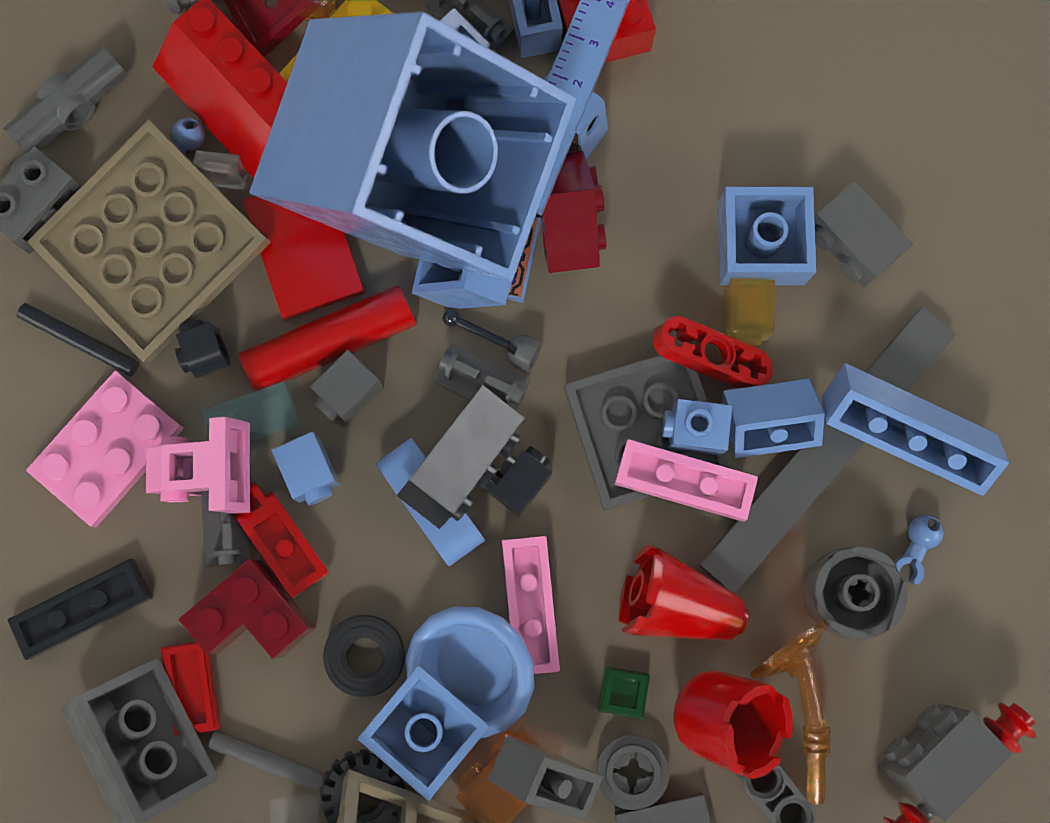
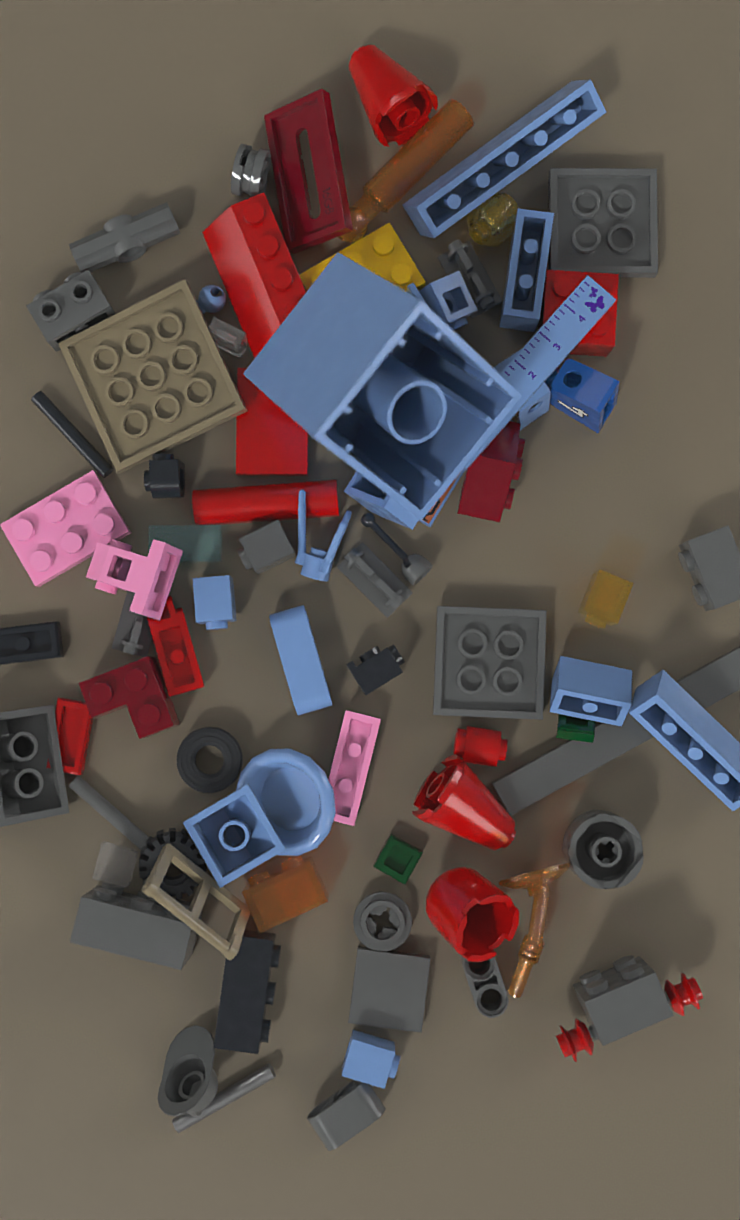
camera: 25 degrees right, 5 degrees up
(411, 383) = (319, 561): none -> medium blue plant
(462, 459) = (337, 637): brick -> none
(544, 778) = (312, 903): dark grey slope -> none
(641, 94) = (583, 393): none -> blue torso
(670, 526) = (480, 746): none -> red brick
(686, 480) = (504, 716): bright pink plate -> none
(694, 355) = (547, 622): red beam -> none
(698, 427) = (528, 678): medium blue brick -> none
(767, 234) = (641, 544): medium blue brick -> none
(771, 466) = (575, 728): none -> dark green tile
(921, 540) = (672, 827): medium blue arm -> none

